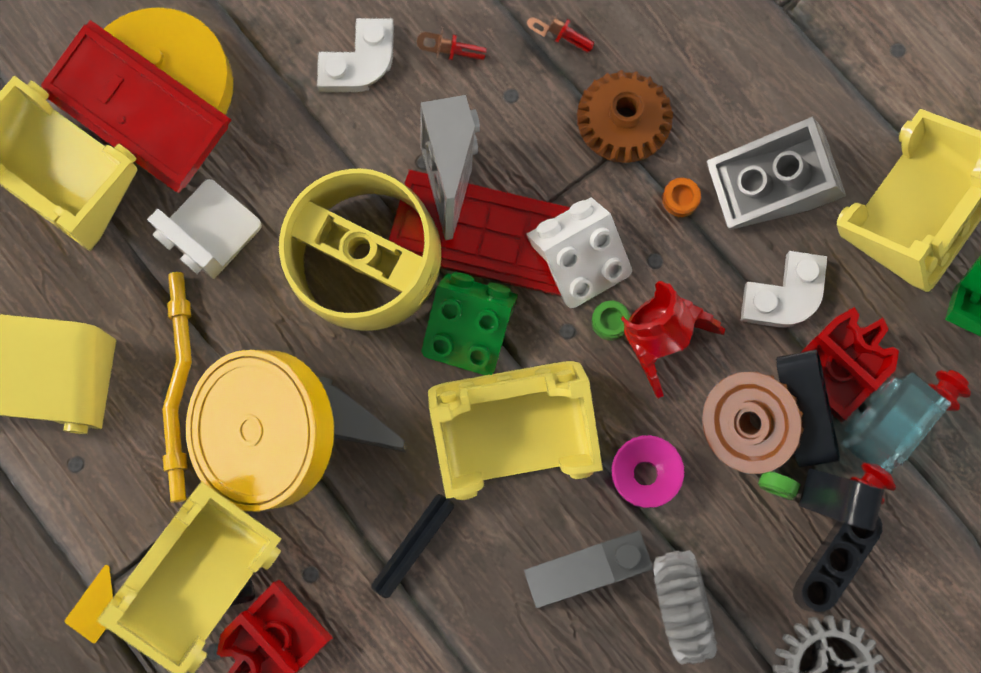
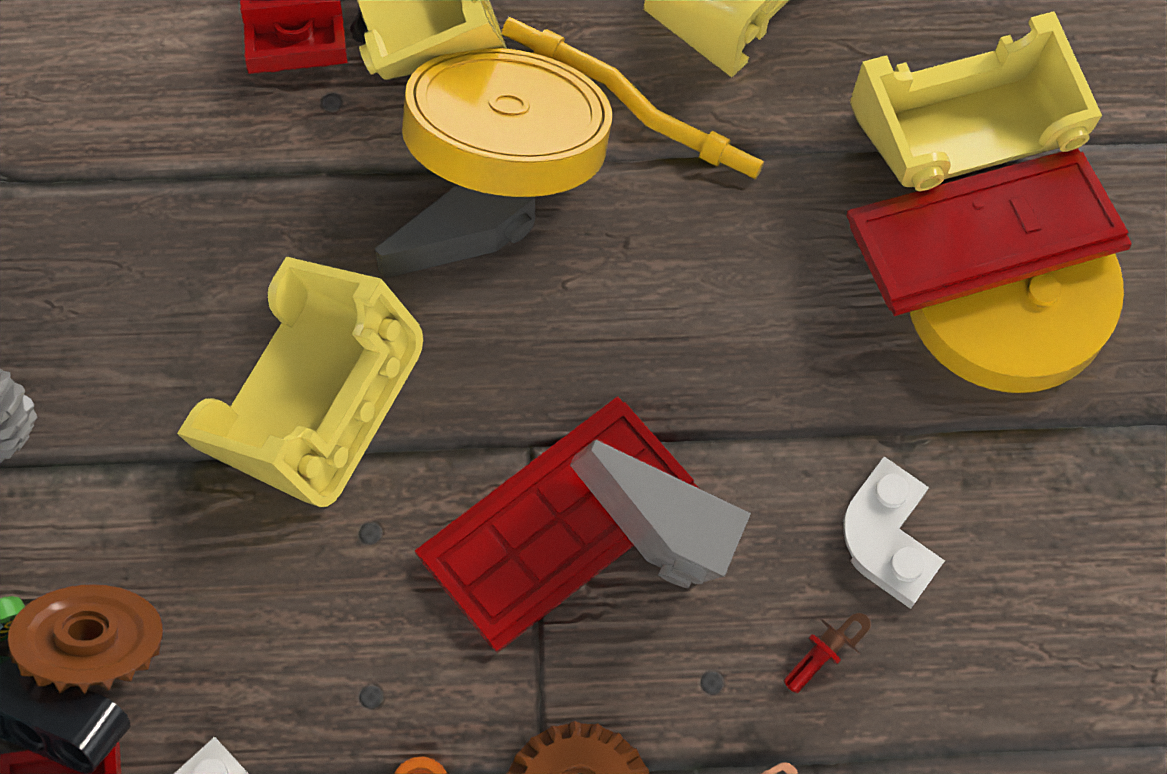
camera: 120 degrees right, 10 degrees down
(207, 228) = (786, 223): white bracket -> none
(313, 225) = (685, 314): light yellow cylinder -> none
(412, 546) = (271, 201): black axle -> none
(468, 323) = (465, 426): green bracket -> none
(582, 251) = (445, 600): white bracket -> none
(588, 569) = (92, 360): dark grey slope -> none
(607, 320) = (340, 586): bright green tile -> none
(664, 460) = (124, 465): dark pink piece -> none
(665, 327) = (273, 619): red helmet -> none

